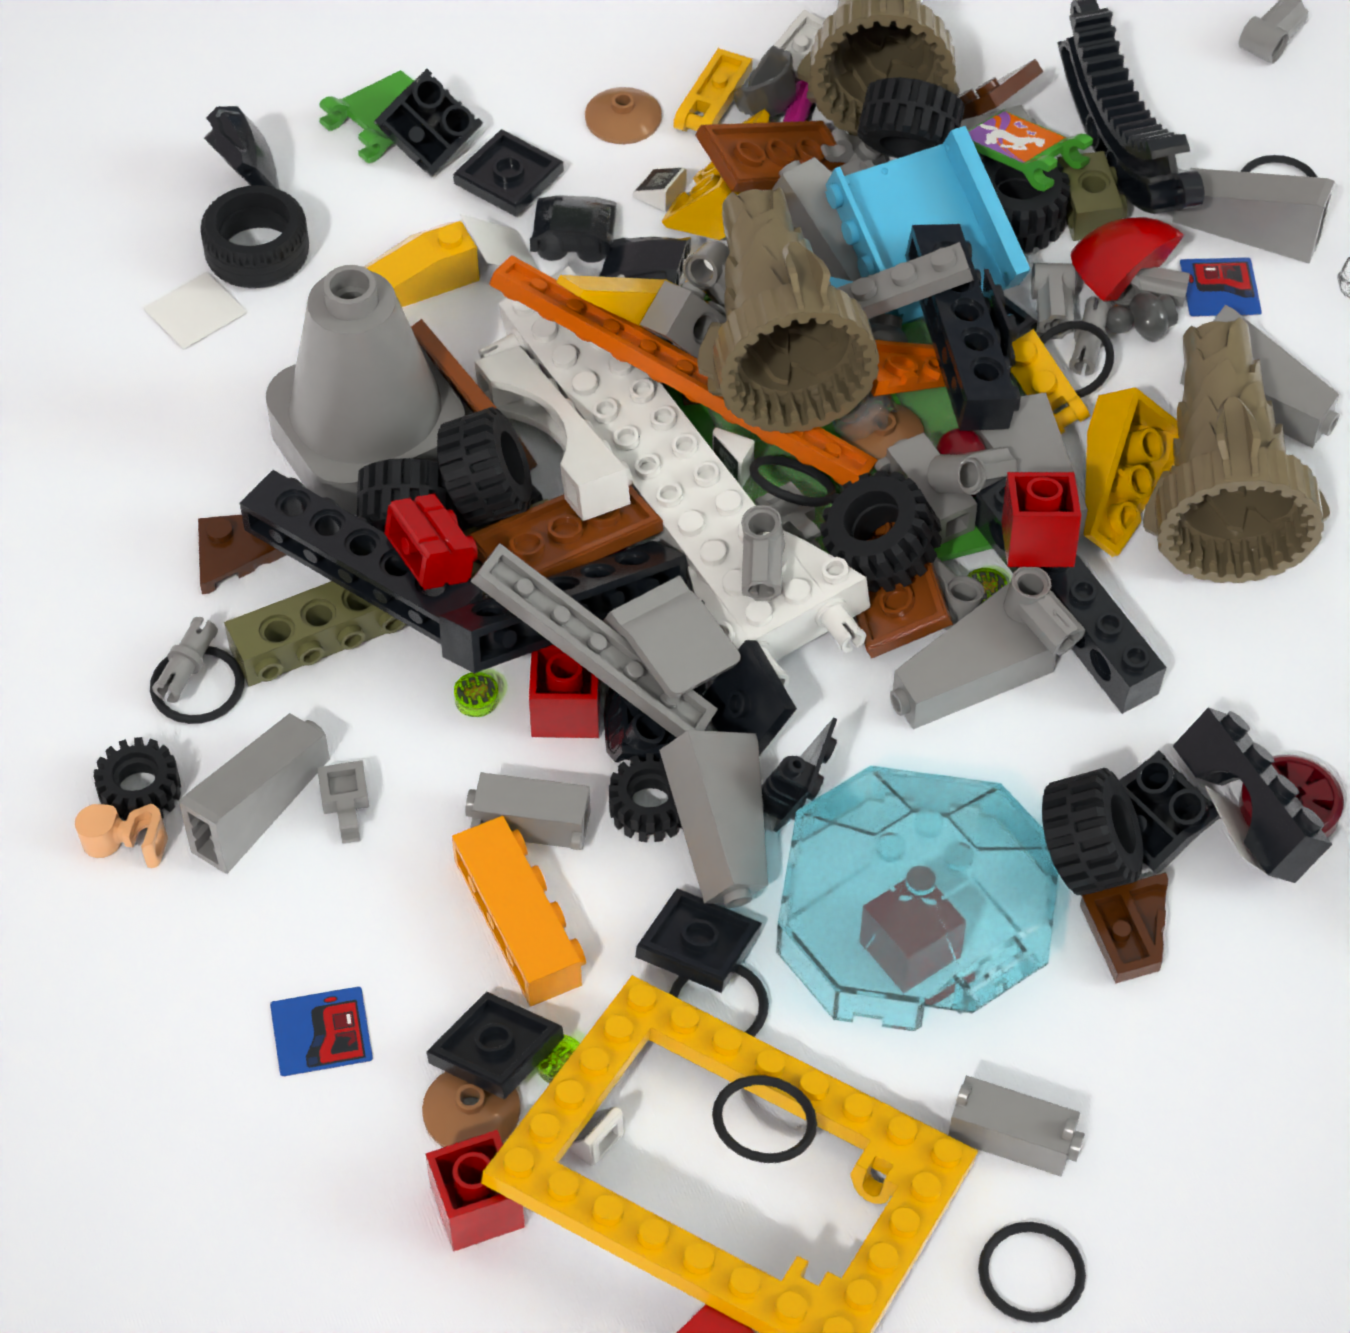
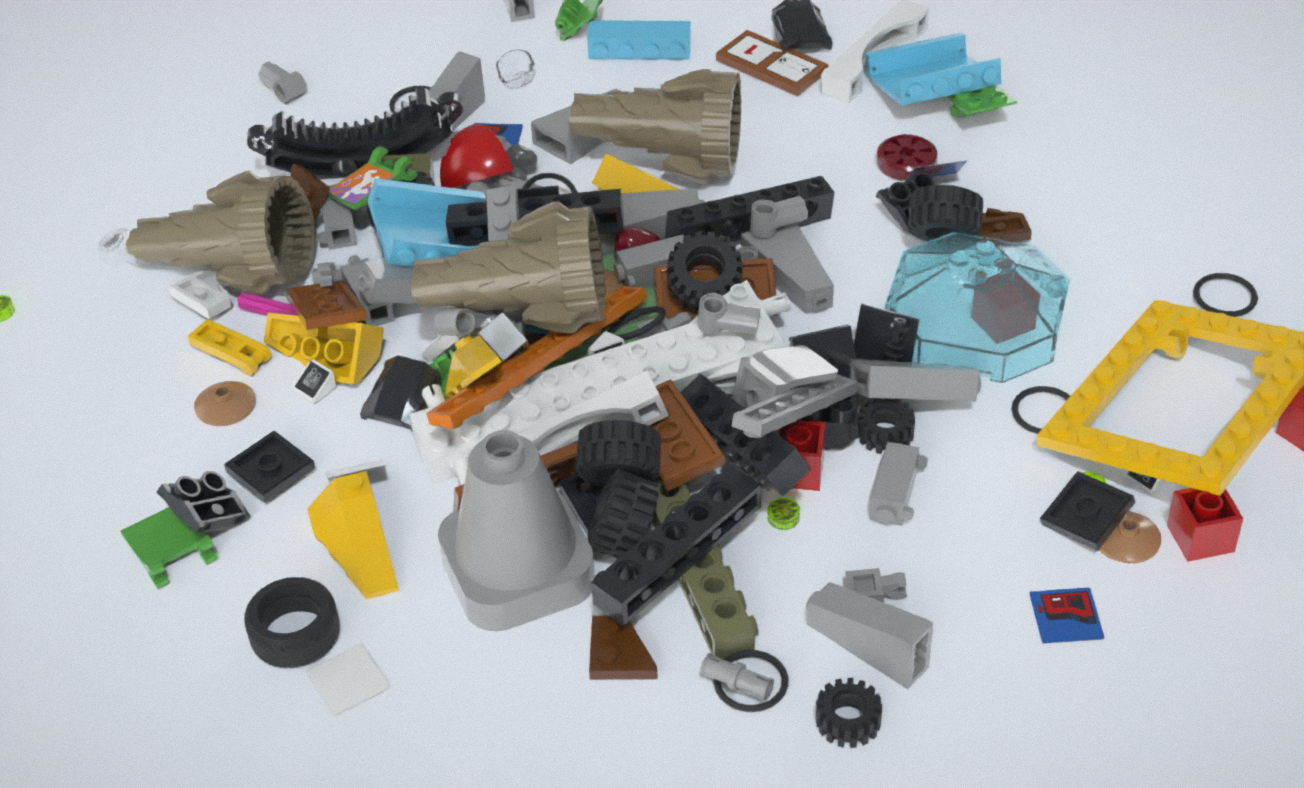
camera: 80 degrees left, 10 degrees down
(103, 831) = (894, 727): light nougat leg -> none
(242, 146) = (203, 617): black slope -> none
(430, 541) = (694, 480): red brick -> none
(518, 911) = (977, 495): light orange brick -> none
(573, 225) = (340, 433): black slope -> none
(698, 940) = (1002, 409): black plate -> none
(757, 1156) = (1153, 389): black tyre -> none
(770, 85) = (243, 306): dark grey hair -> none
(907, 116) = (333, 222): black tyre -> none
(970, 471) = (665, 225): light grey piece -> none
(1016, 1126) = (1136, 283): light grey brick -> none
(1041, 519) = (728, 185): red head -> none
(1282, 831) = (881, 167): black arch -> none

